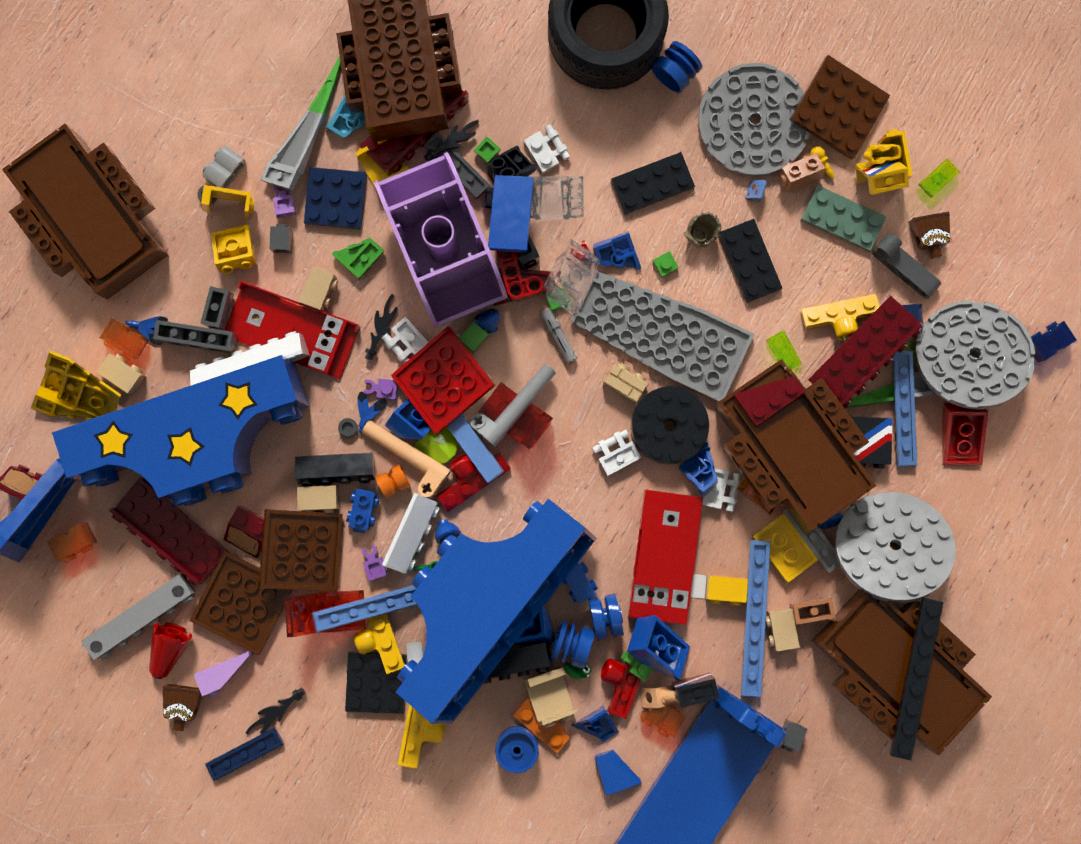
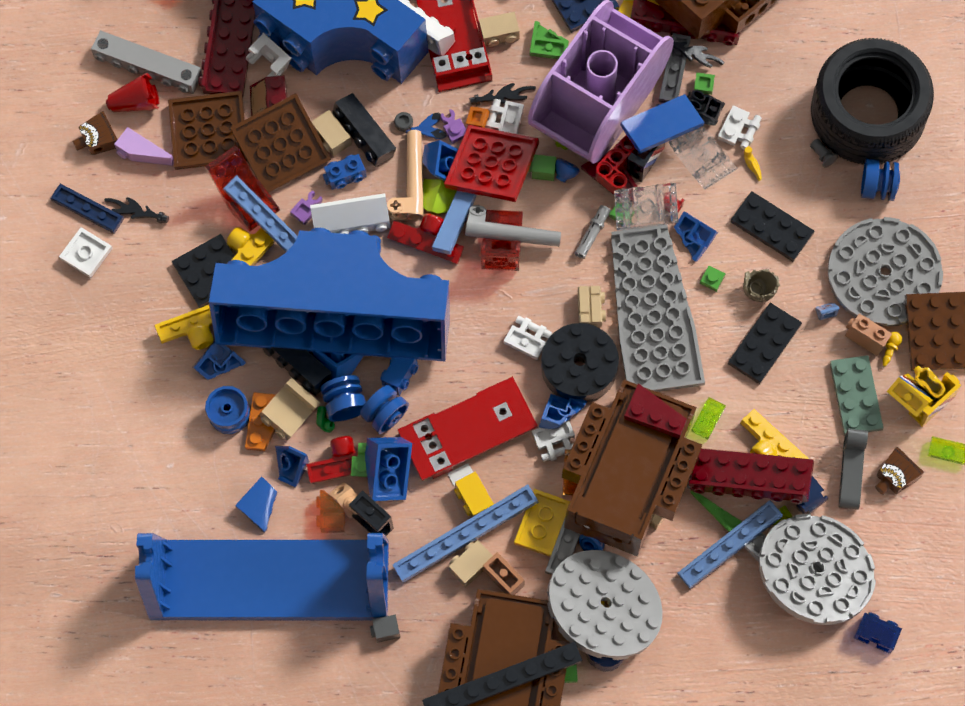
camera: 60 degrees right, 15 degrees down
(211, 503) = (272, 52): none -> white panel
(287, 781) = (85, 252): none -> white plate
(388, 362) = (477, 116): none -> orange plate
(393, 481) = (382, 179): orange wheel -> none
(464, 730) = (217, 360): none -> blue slope
(585, 160) = (752, 162): none -> yellow bar
(617, 95) = (825, 155): none -> dark grey pin
(879, 434) = (681, 535): panel -> none
(963, 435) = (743, 609): red slope -> none

